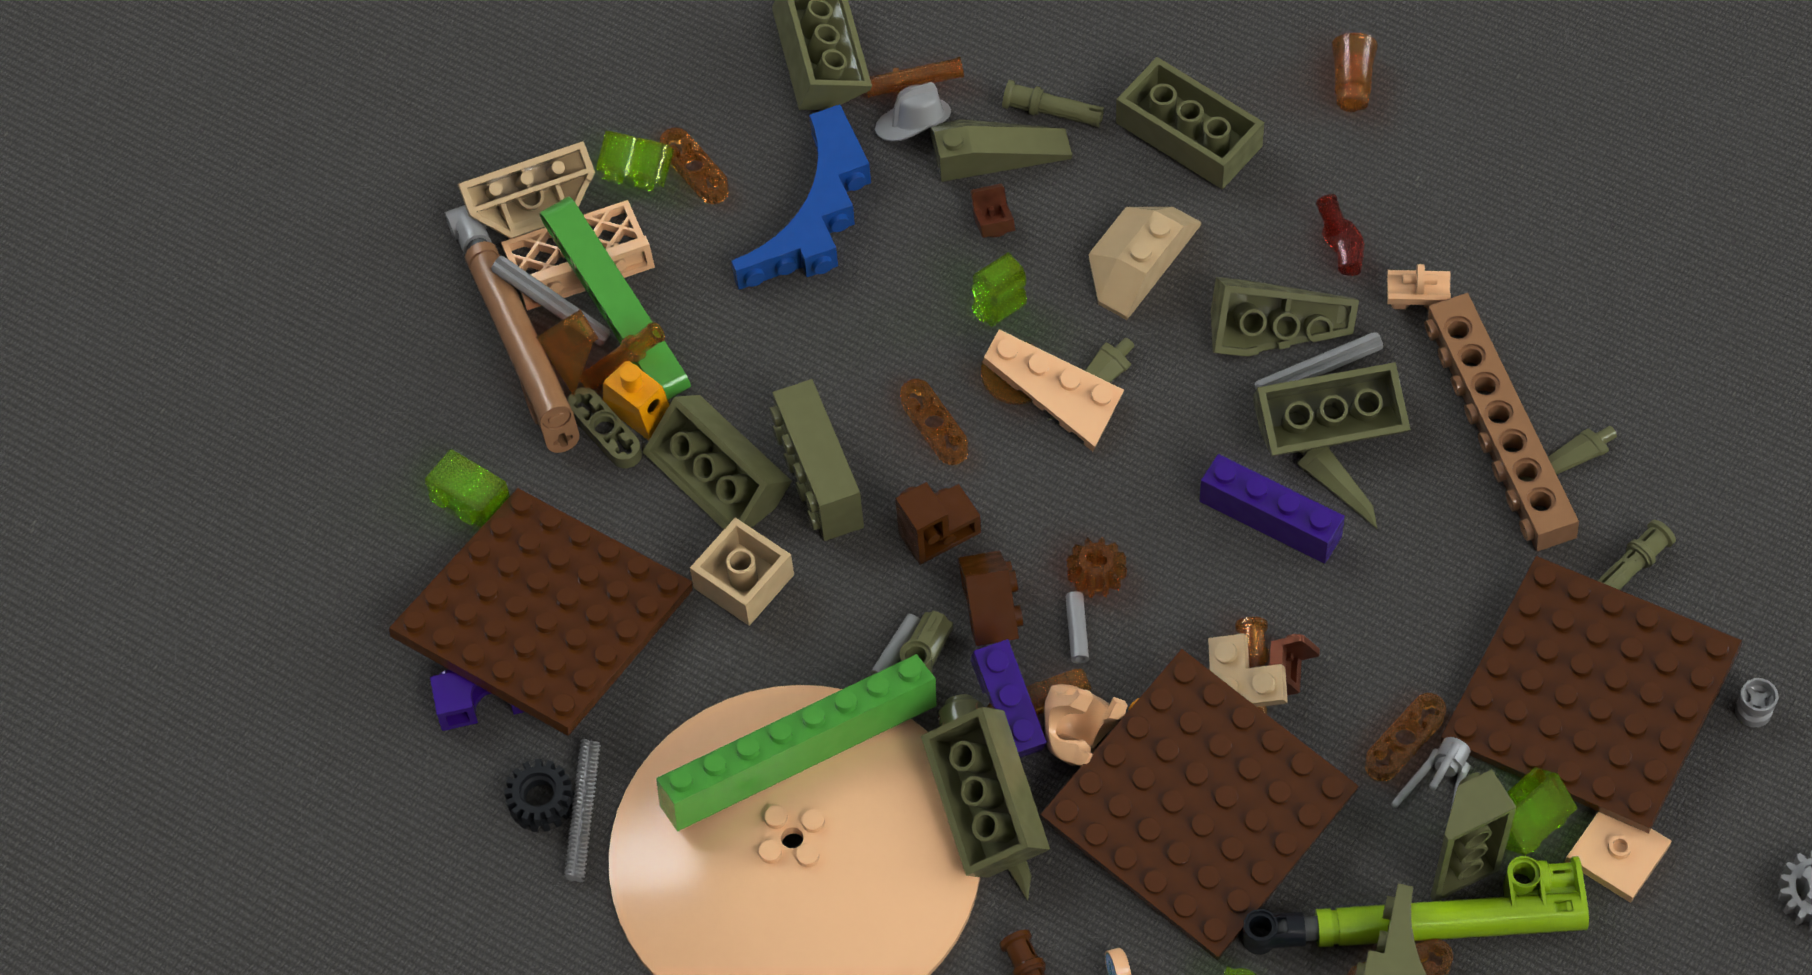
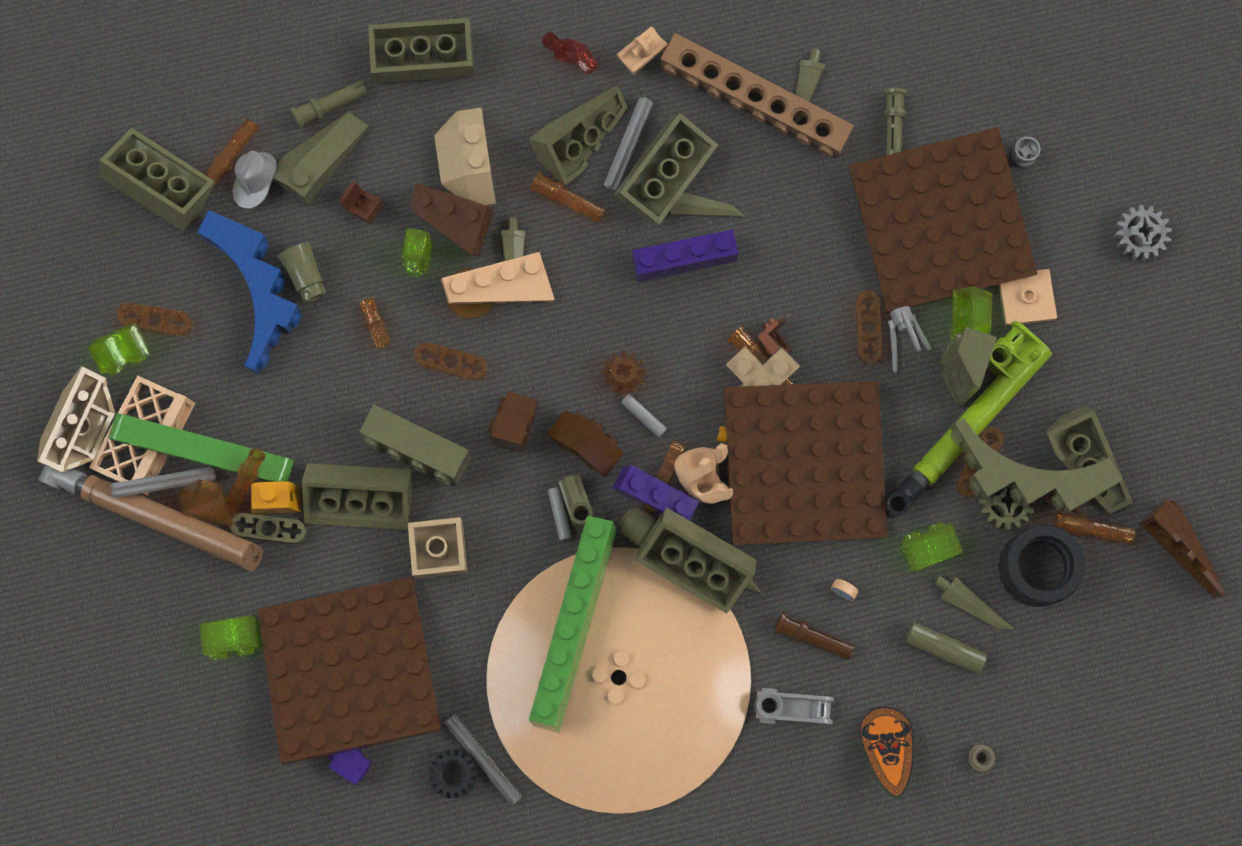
camera: 50 degrees left, 20 degrees up
(874, 227) = (303, 271): none -> olive plant
(896, 328) = (374, 323): none -> clear orange axle
(1070, 291) = (454, 216): none -> reddish brown wedge
(1198, 352) = (556, 192): none -> clear orange pin

